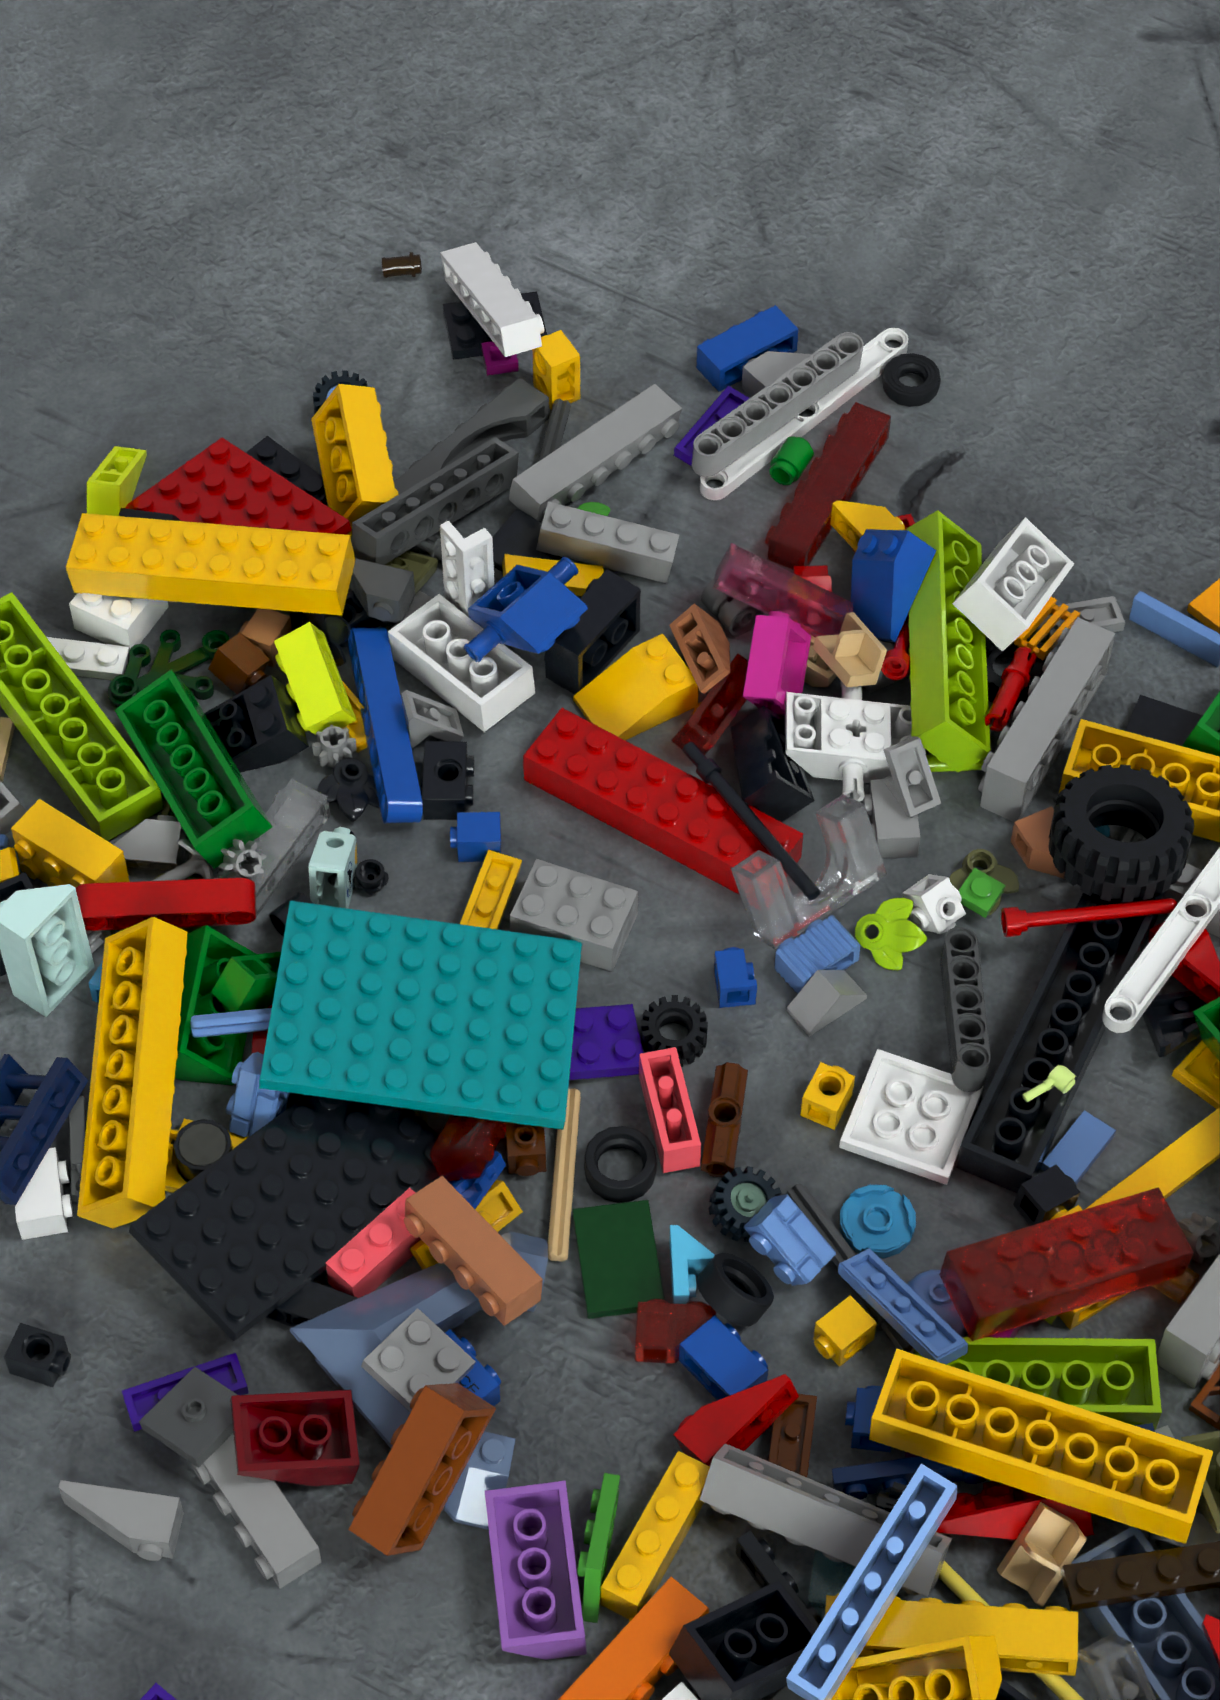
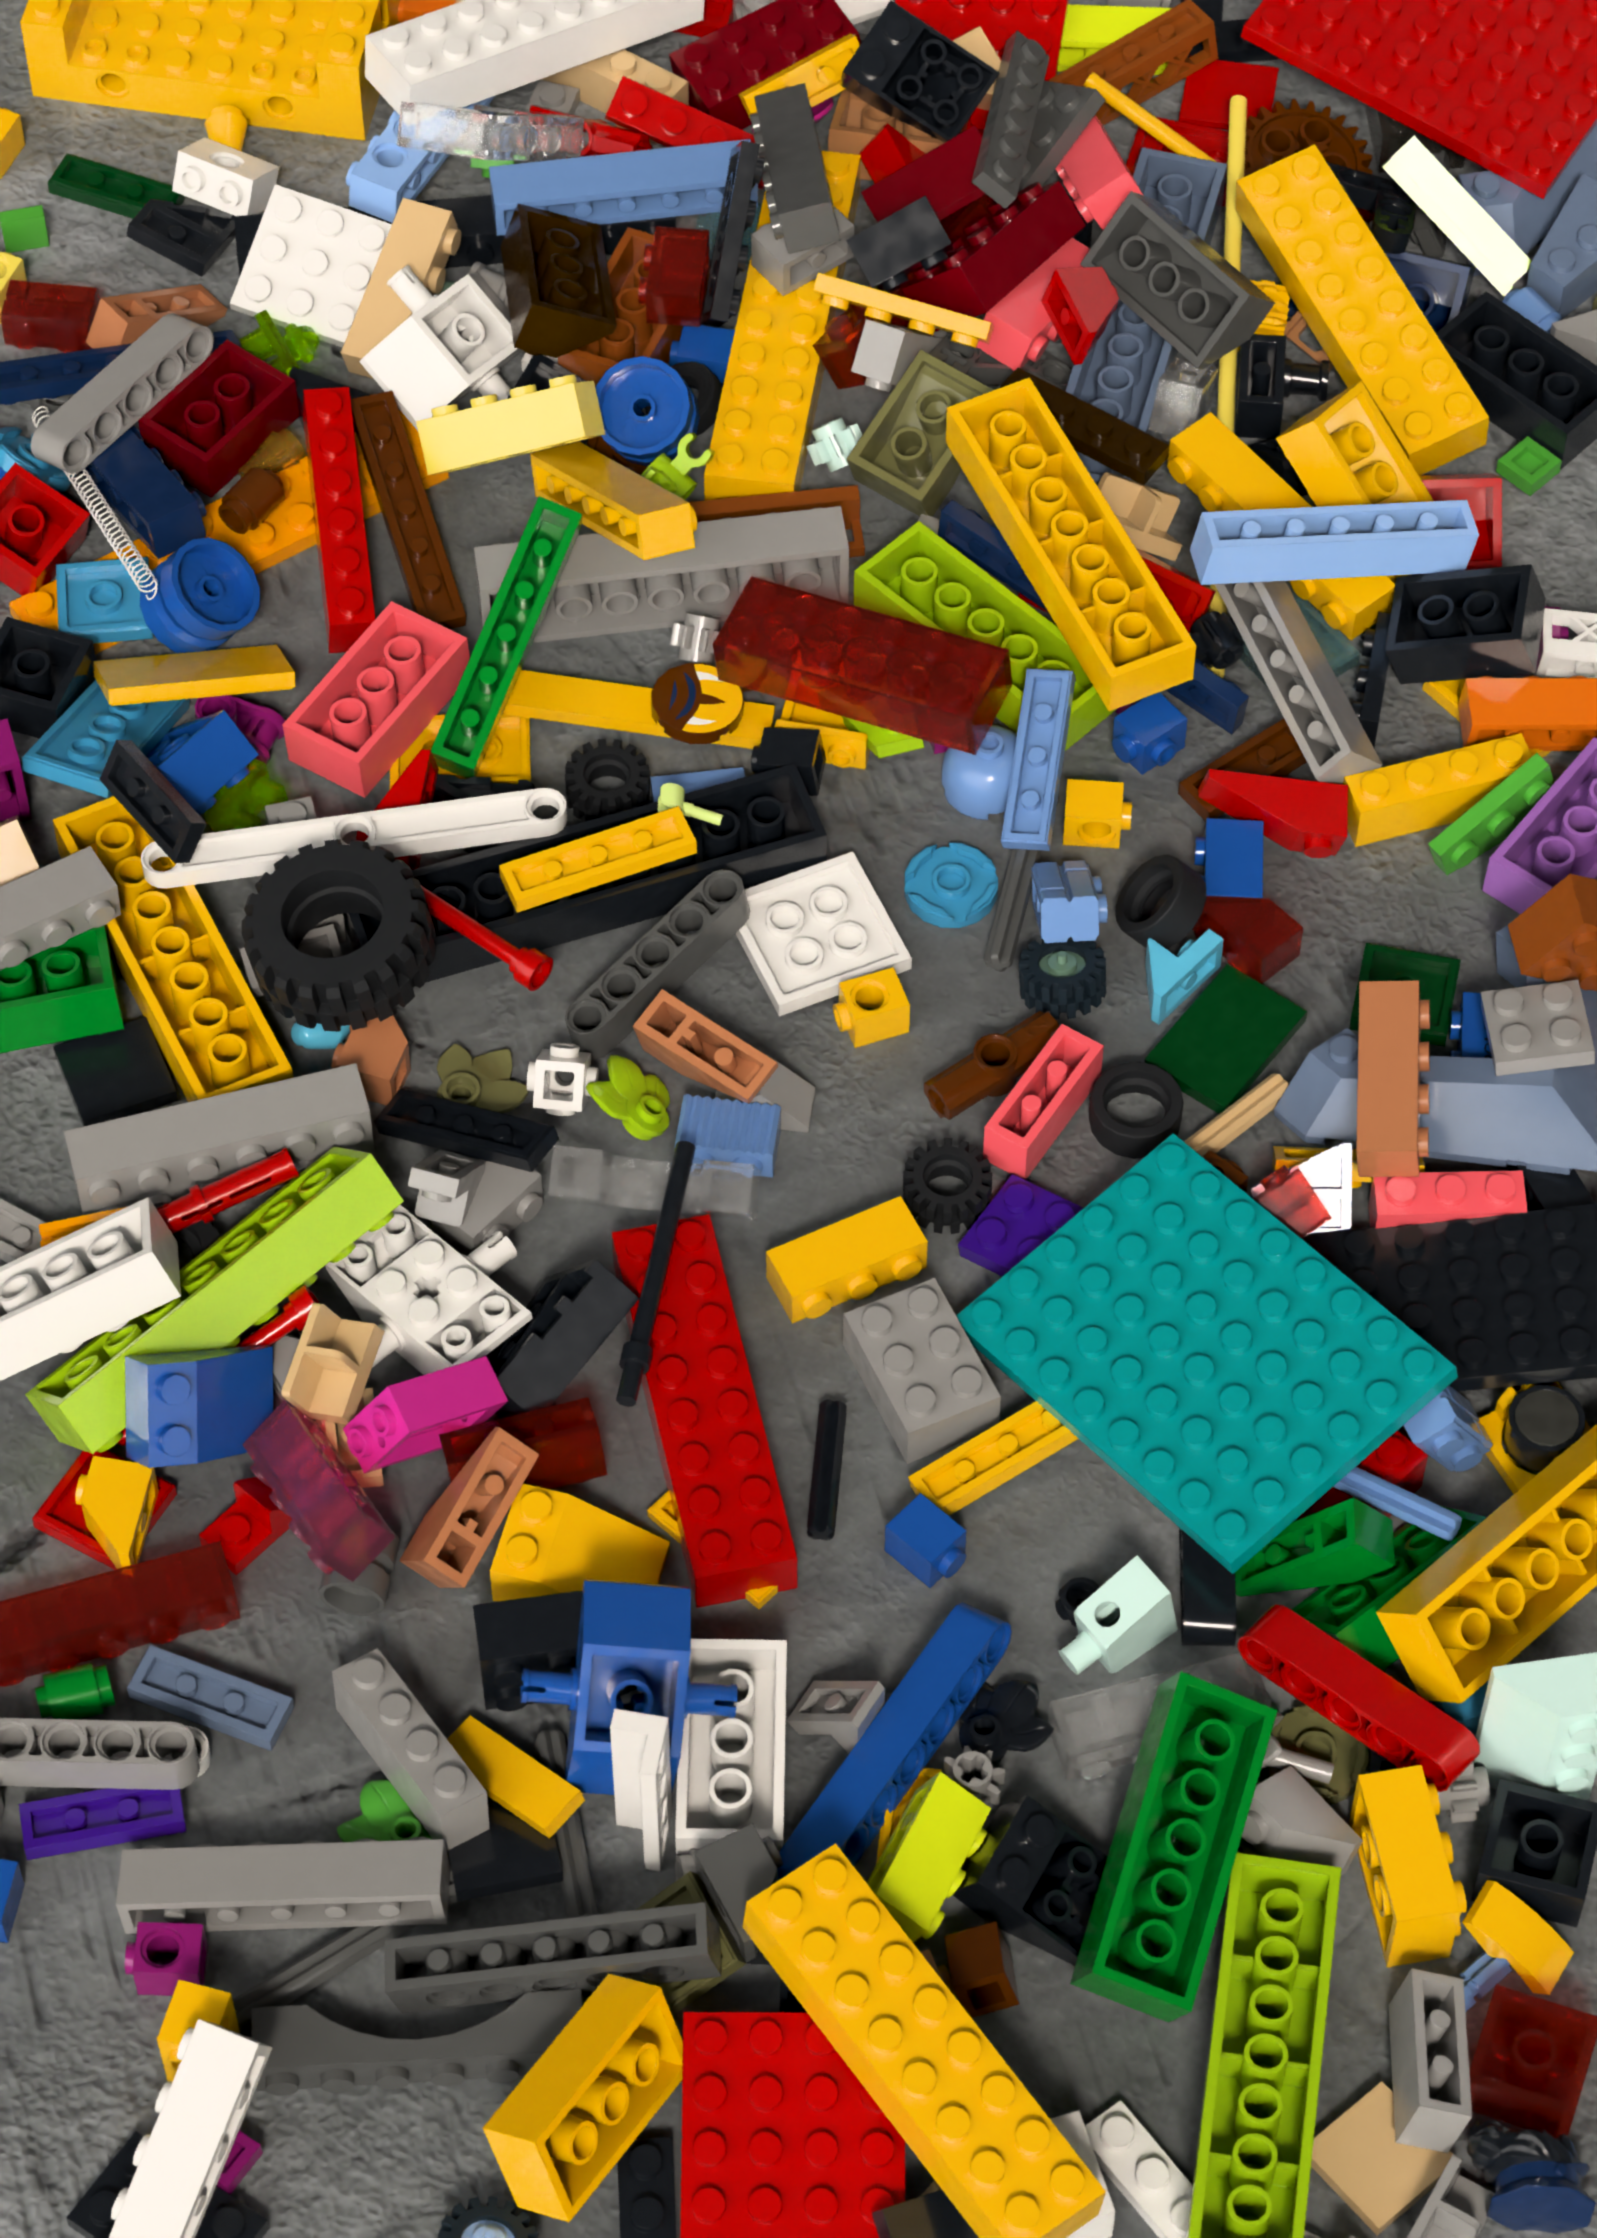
camera: 135 degrees left, 0 degrees up
(131, 683) = (1071, 2060): dark green plant -> none
(235, 855) = (1231, 1667): light grey gear -> none
(446, 762) = (897, 1606): black brick -> none
(545, 1384) = (1436, 980): none -> dark green tile
(570, 838) = (826, 1470): none -> black axle
(610, 395) = (155, 1939): none -> magenta brick
(677, 942) = (846, 1260): none -> yellow brick
(731, 507) = (210, 1697): none -> sand blue plate
(734, 978) = (833, 1183): blue brick -> none
(883, 975) = (702, 1048): none -> nougat slope
(944, 832) = (466, 1130): none -> black tile
(980, 892) = (500, 1062): bright green plate -> none
(1054, 1007) = (598, 859): none -> yellow plate
(1139, 1087) = (604, 762): none -> black tyre
(1141, 1173) = (696, 704): none -> tile

